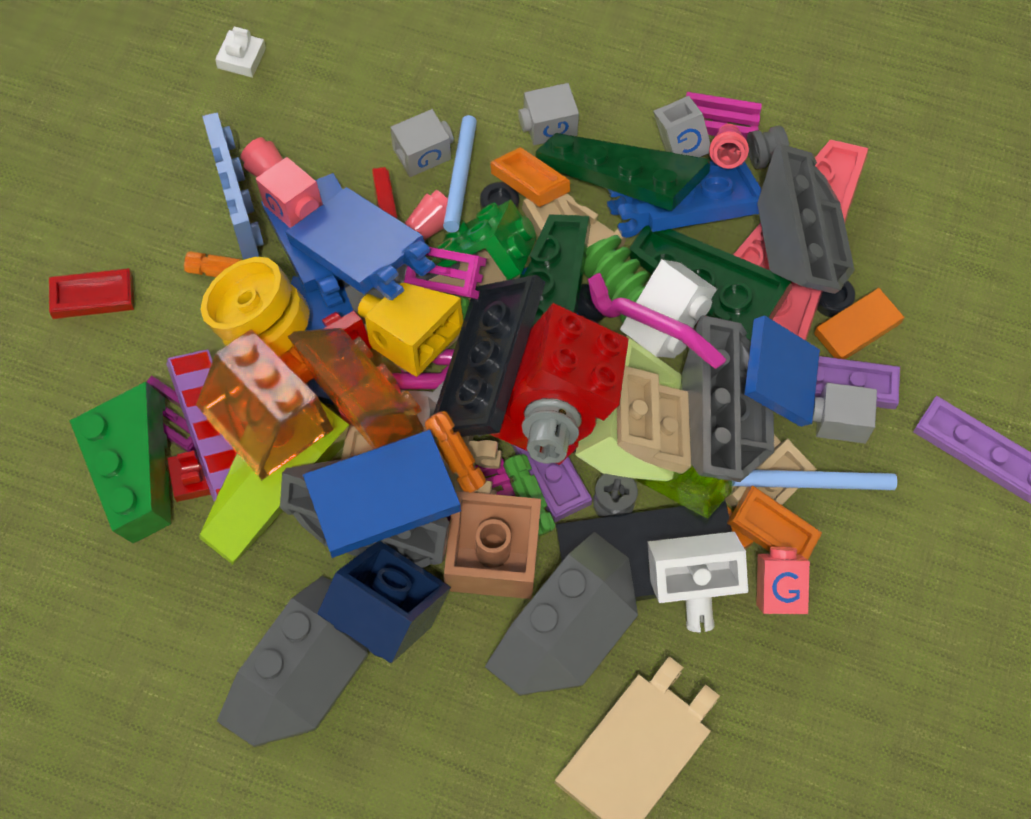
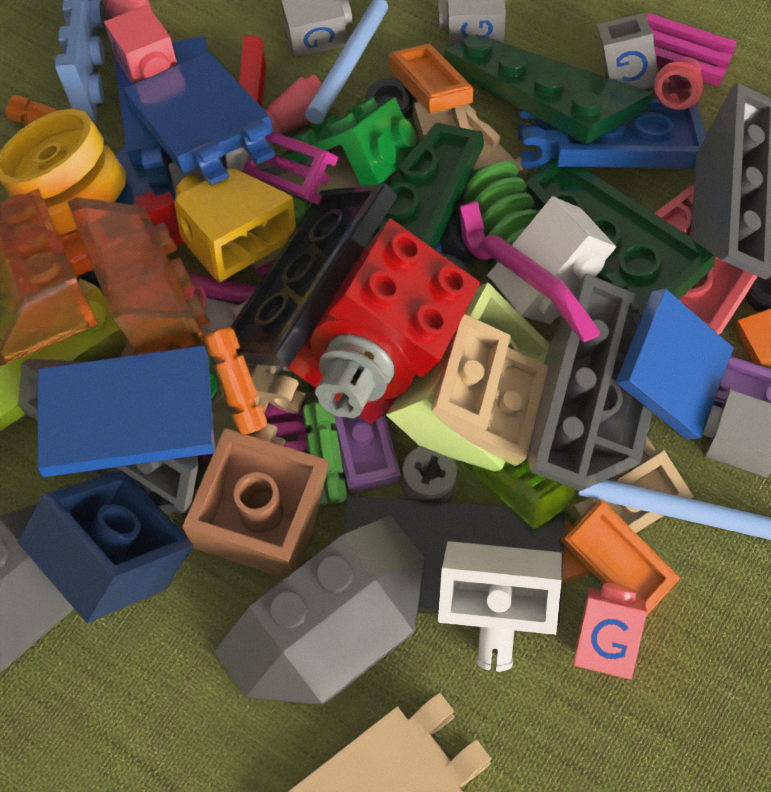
camera: 20 degrees right, 0 degrees up
(763, 144) = (720, 84): dark grey wheel -> none

